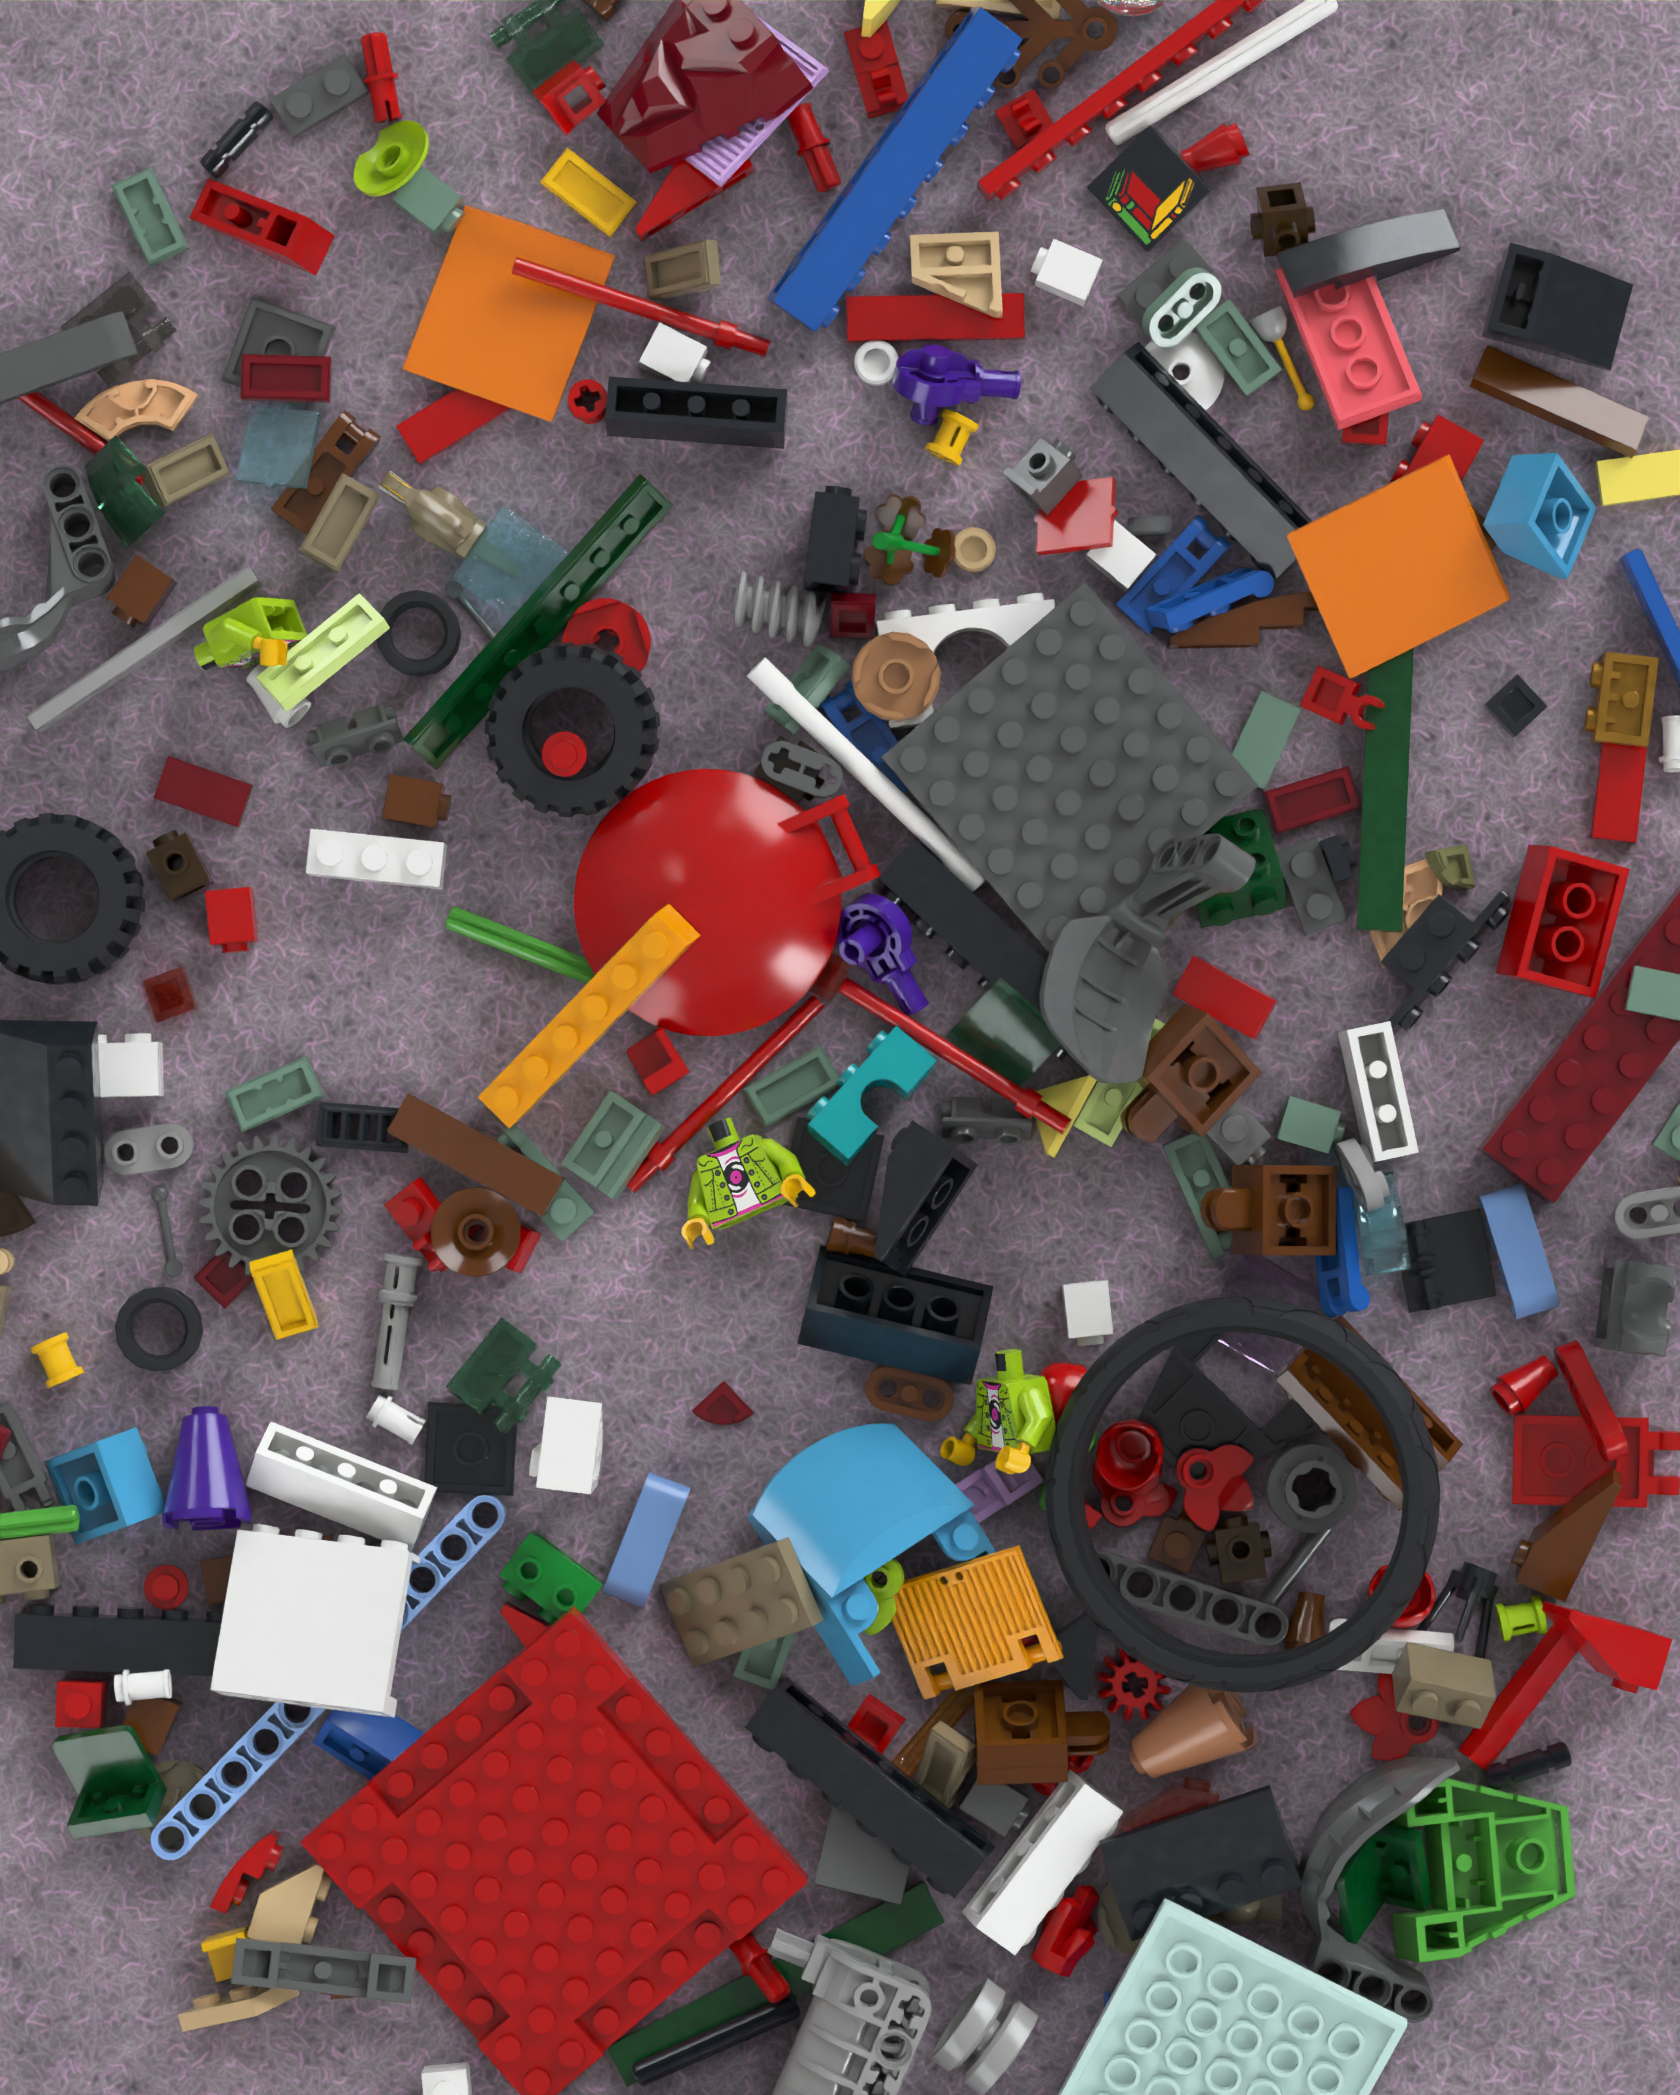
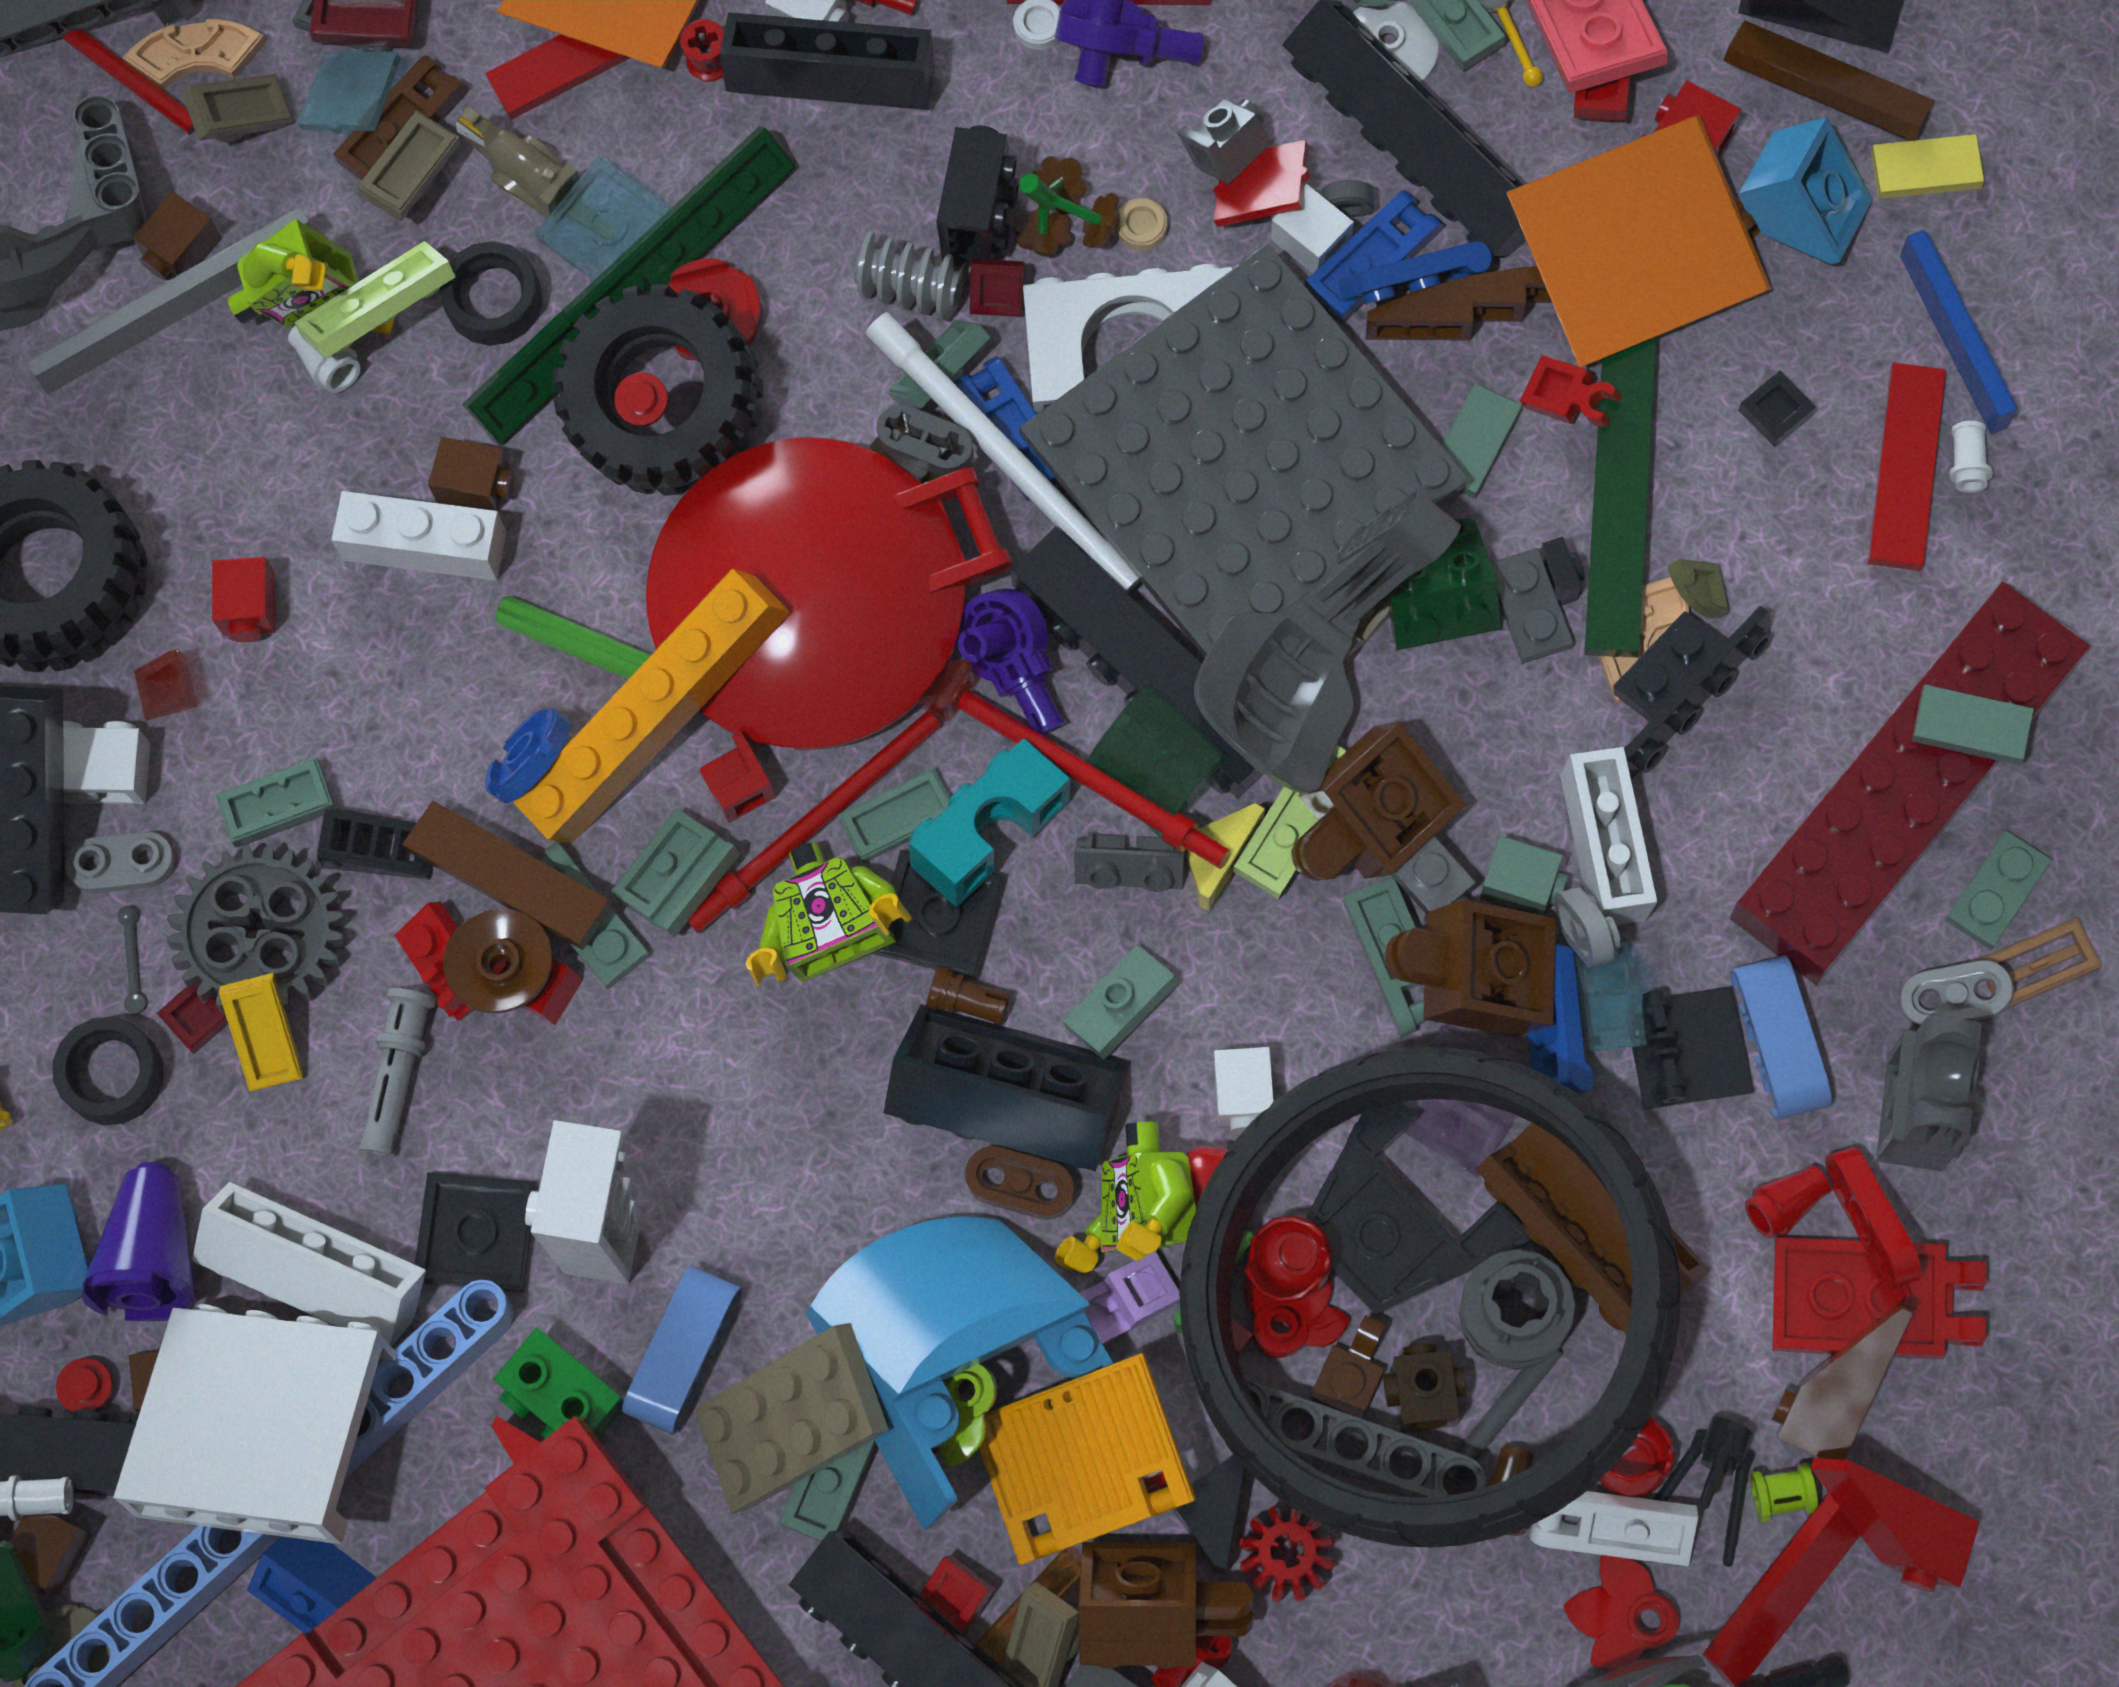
camera: 15 degrees right, 15 degrees down
(117, 493) = (161, 126): clear green slope -> none
(178, 865) = (187, 538): dark brown brick -> none
(203, 791) = (227, 461): dark red tile -> none
(375, 733) = (393, 410): dark grey hinge -> none
(395, 1419) = (384, 1190): white pin -> none
(455, 591) = (539, 254): dark grey hinge -> none
(486, 1054) = (529, 756): none -> blue tile
(491, 1369) = (505, 1133): clear green plate -> none
(722, 1407) = (788, 1193): dark red tile -> none
(896, 676) = (1041, 343): medium nougat tile -> none
(918, 1190) = (1040, 932): black slope -> none
(951, 437) = (1123, 83): yellow bush -> none
(984, 1239) = (1120, 1002): none -> sand green plate
(1192, 1731) = (1360, 1614): nougat cone -> none
(1220, 1485) = (1402, 1308): red plate -> none
(1224, 997) = (1439, 731): red slope -> none
(1312, 800) = (1533, 509): dark red tile -> none
(1443, 1685) = (1684, 1568): dark tan brick -> none
(1562, 920) = (1834, 646): red slope -> none
(1622, 699) = (1906, 399): pearl gold bracket -> none

